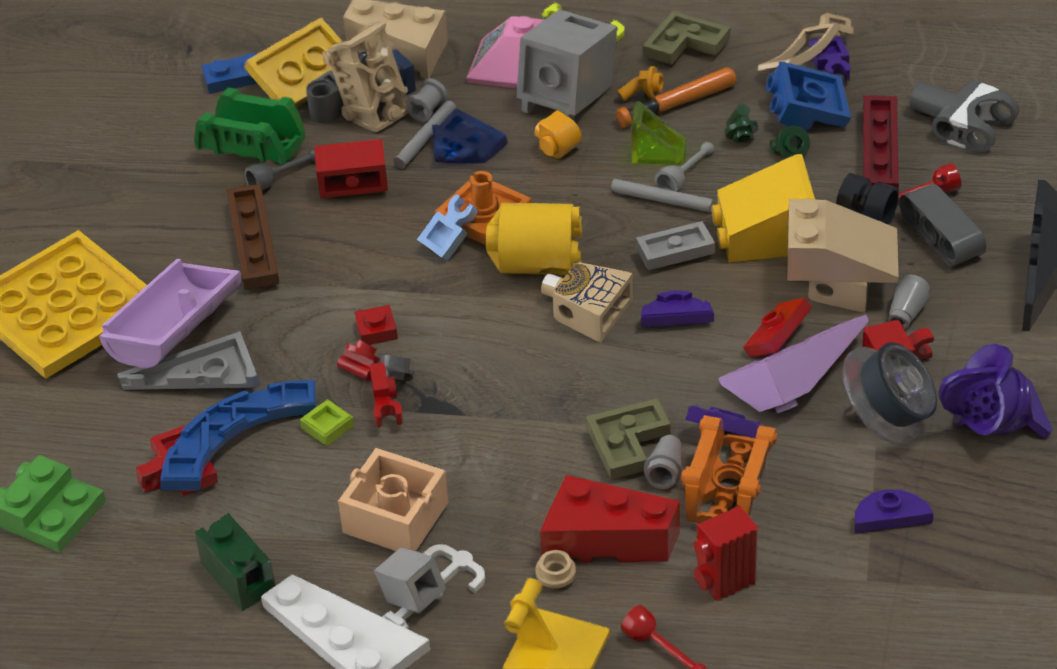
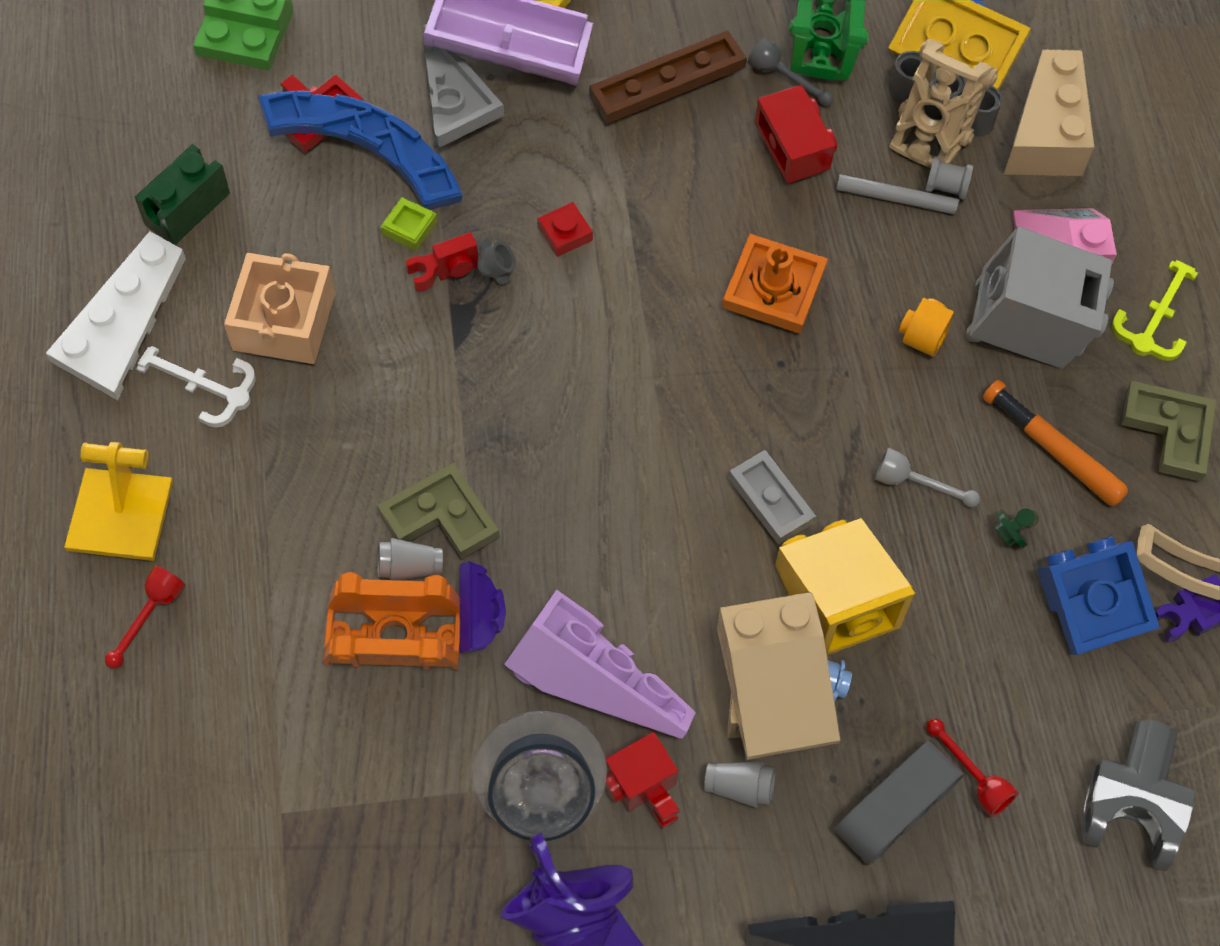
camera: 70 degrees right, 20 degrees up
(357, 359) = (506, 226): red plate -> none
(406, 71) = (989, 139): dark blue tile -> none
(410, 579) = (179, 352): light grey brick -> none
(445, 232) = (720, 251): light blue plate -> none
(466, 140) = (898, 235): clear blue slope -> none
(534, 238) = (717, 344): yellow cylinder -> none
(555, 569) = (228, 477): tan plate -> none
(589, 298) = (649, 425): tan torso -> none
(610, 522) = (294, 518): red wedge -> none
(649, 81) = (1064, 406): light orange plate -> none
(654, 139) = (955, 432): clear neon green slope -> none
(662, 195) = (866, 464): light grey bar -> none
(676, 308) = (662, 520): dark purple plate -> none
(726, 553) = (251, 645): red brick -> none
(777, 327) = (655, 638): red plate -> none
(791, 141) = (1006, 593): dark green plate -> none
(873, 201) = (906, 707): black wheel -> none
(880, 139) = (1039, 700): dark red plate -> none
(891, 510) = (386, 819): dark purple plate -> none

